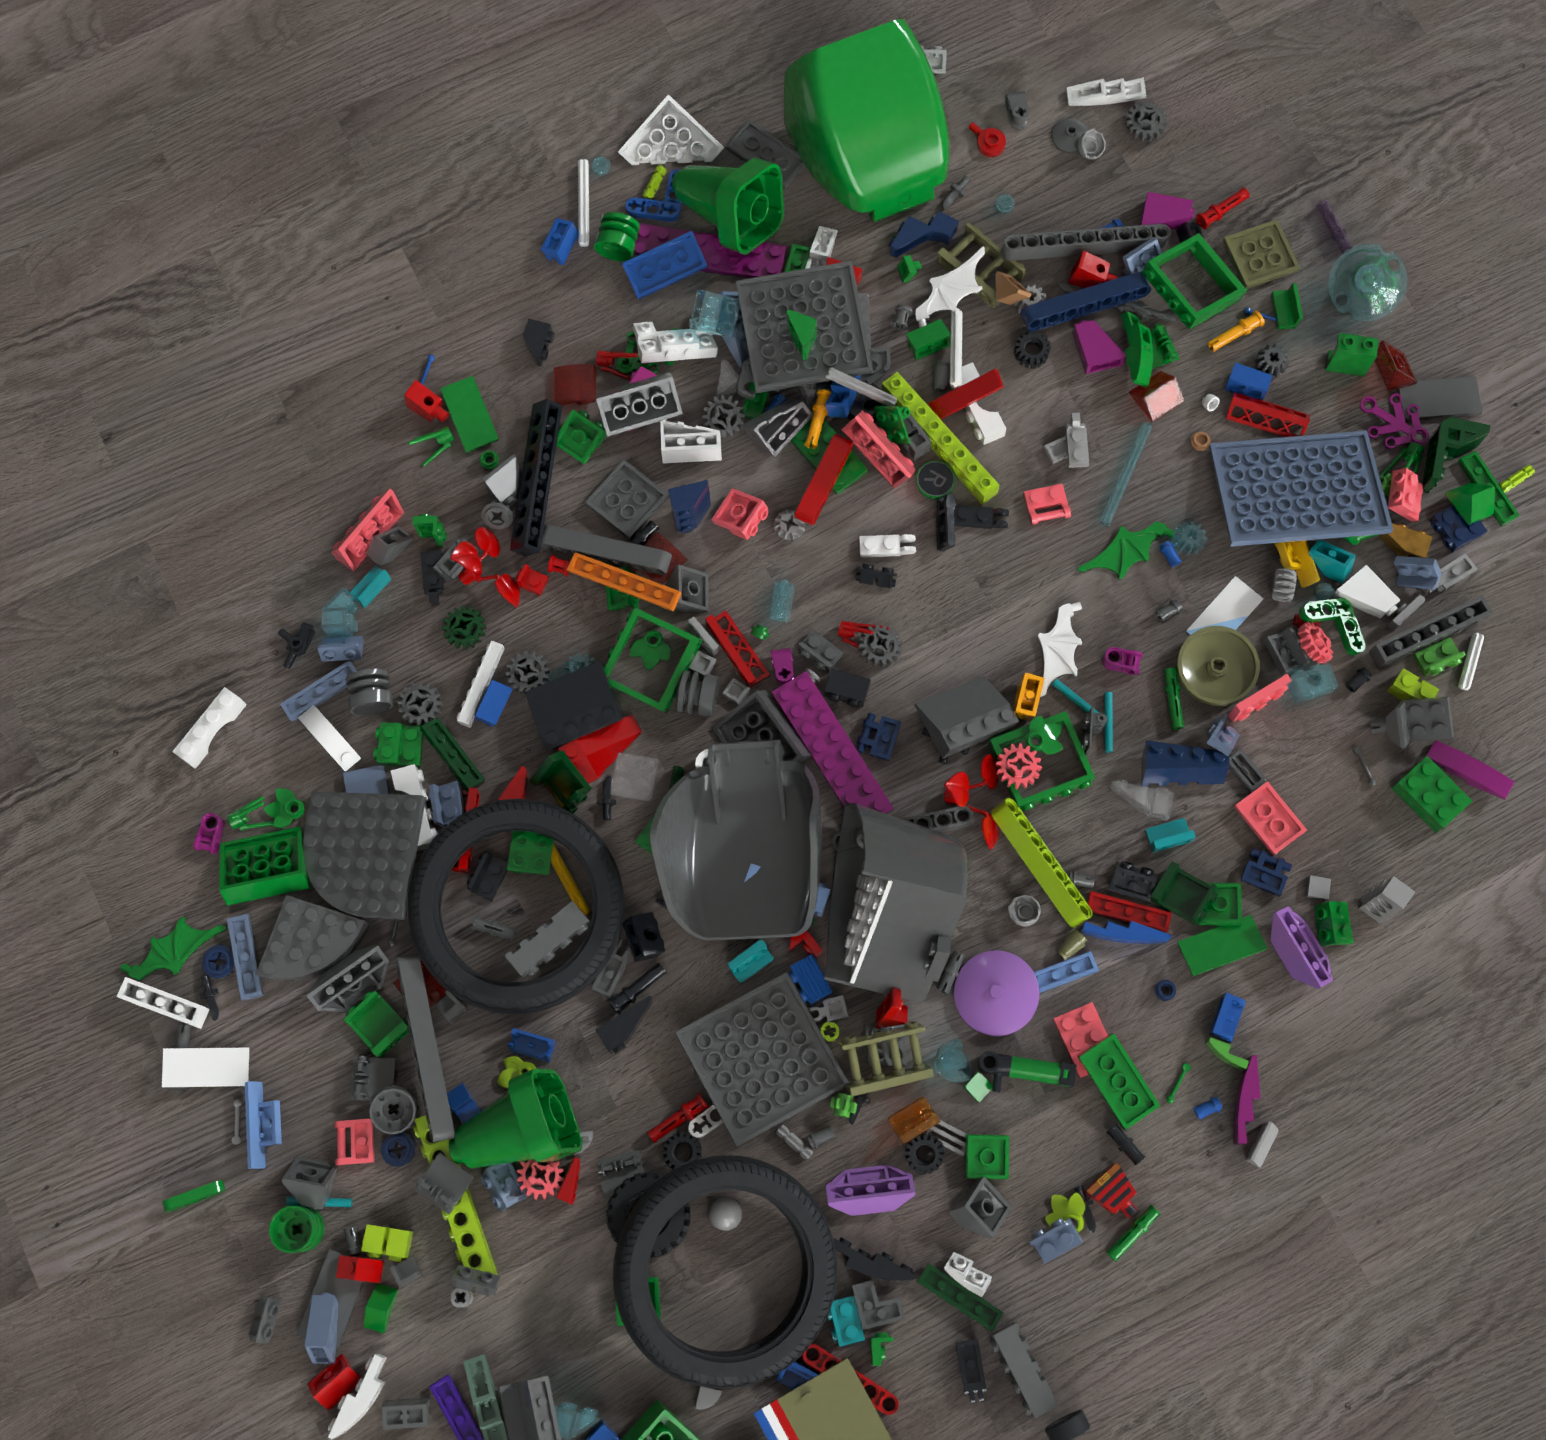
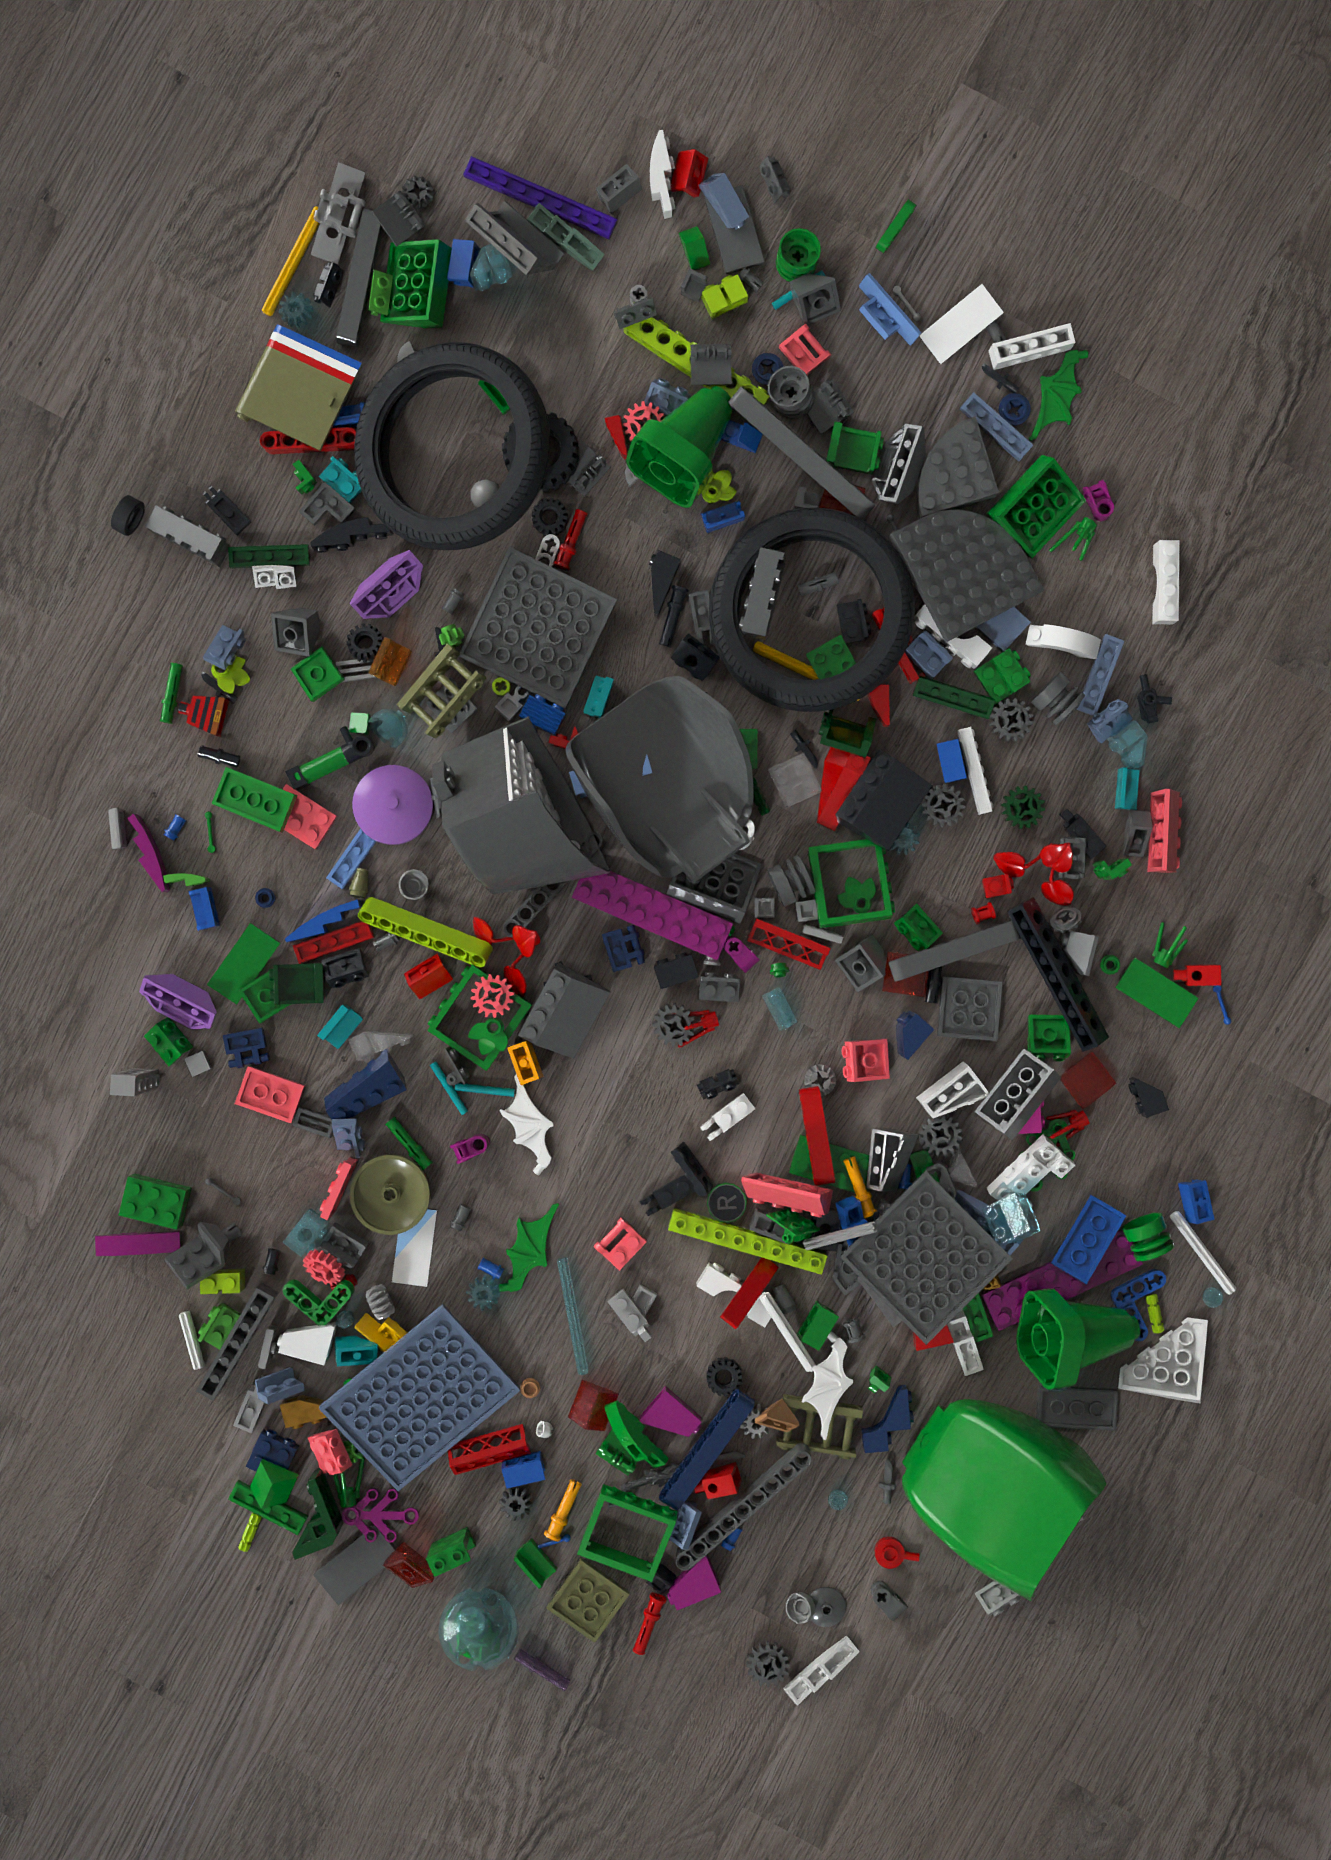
camera: 145 degrees right, 15 degrees up
(282, 809) = (1058, 562): green plate -> none
(360, 1269) = (729, 262): red slope -> none
(624, 581) = (918, 932): orange plate -> none
(794, 1142) = (470, 584): light grey axle -> none
(803, 331) = (919, 1246): green slope -> none
(891, 1011) = (461, 730): red slope -> none
(1064, 826) = (428, 976): none -> red panel

